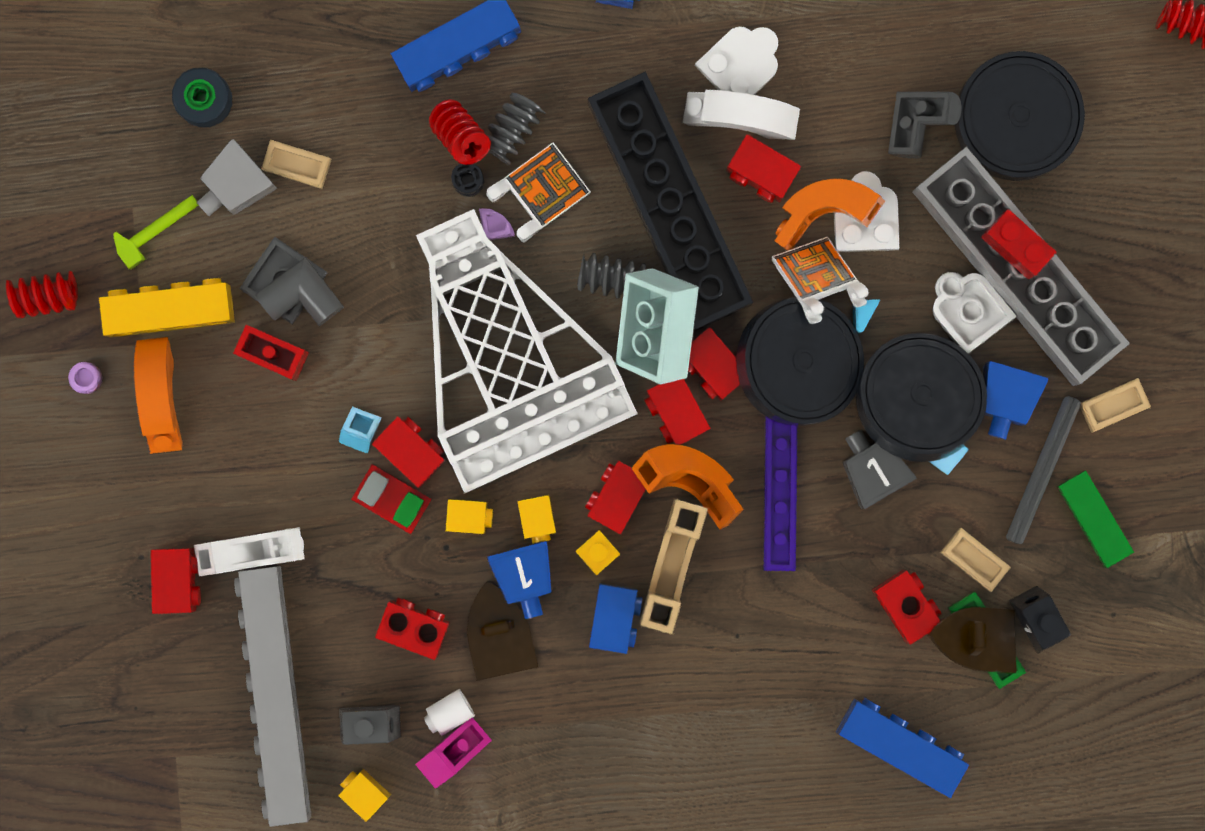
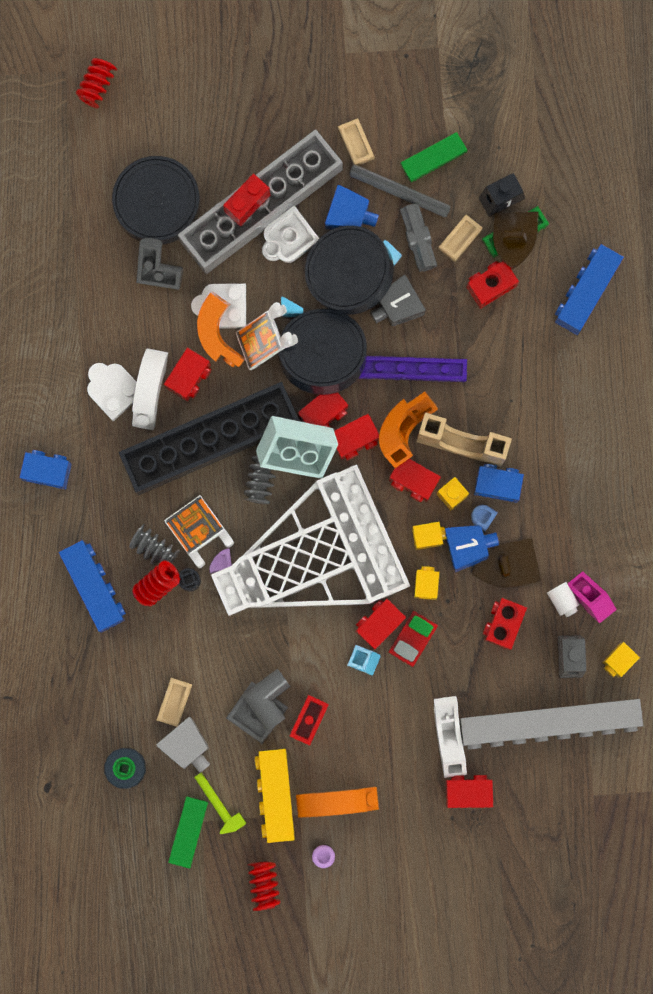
camera: 85 degrees left, 5 degrees down
(116, 188) = (188, 832): none -> green tile
(567, 596) = (483, 516): none -> medium blue tile
(973, 498) = (418, 237): none -> dark grey piece

